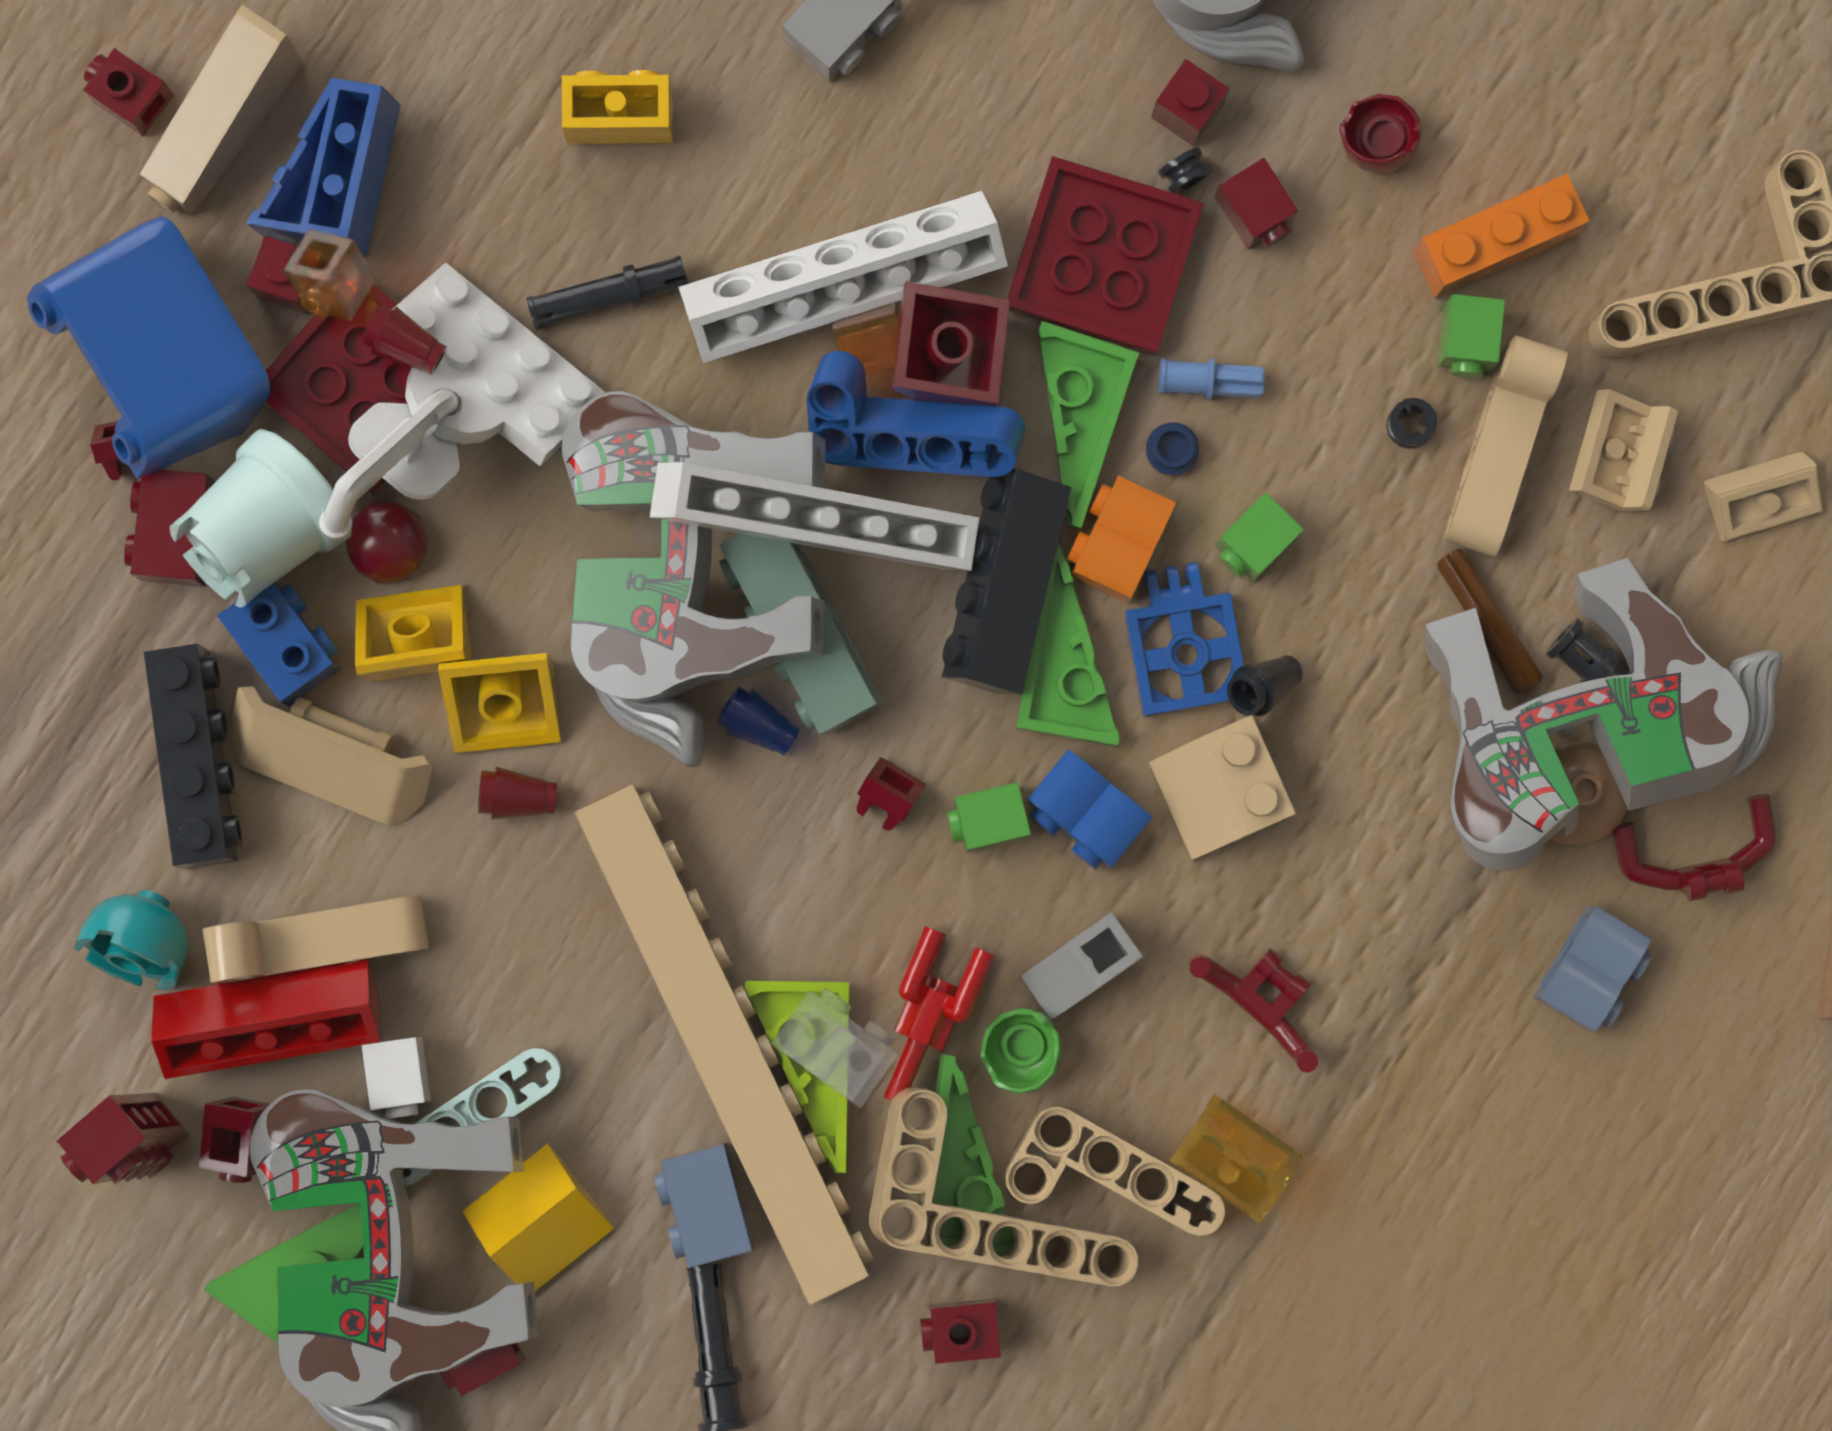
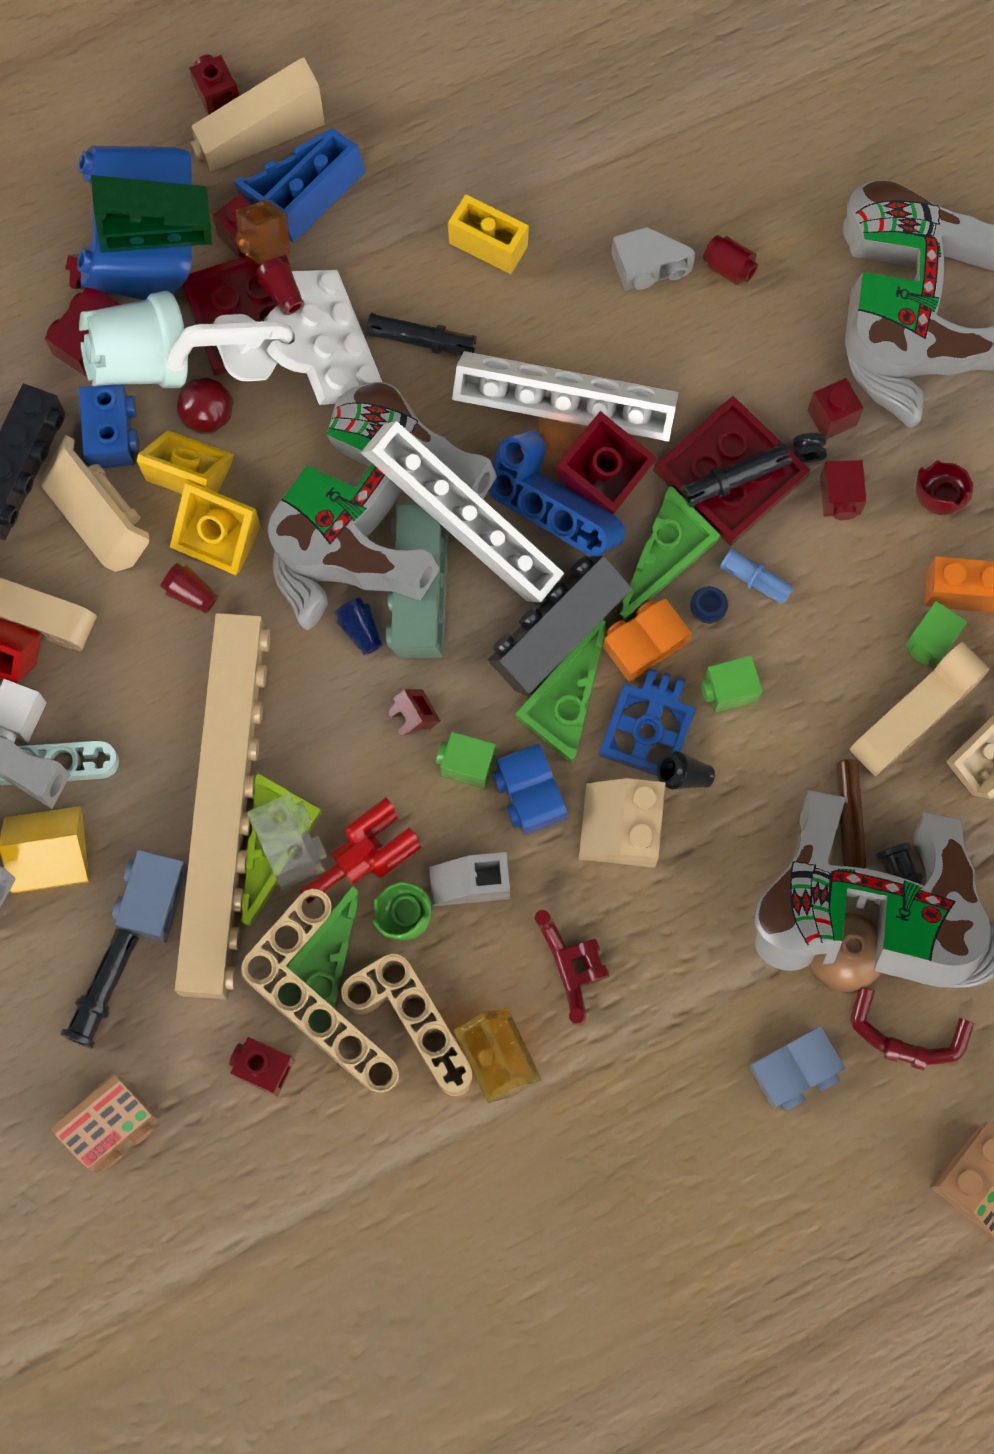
camera: 35 degrees right, 10 degrees down
(185, 345) = (149, 214): none -> dark green wedge
(1106, 281) = (723, 480): none -> black pin
(1427, 419) = (868, 657): black bush -> none

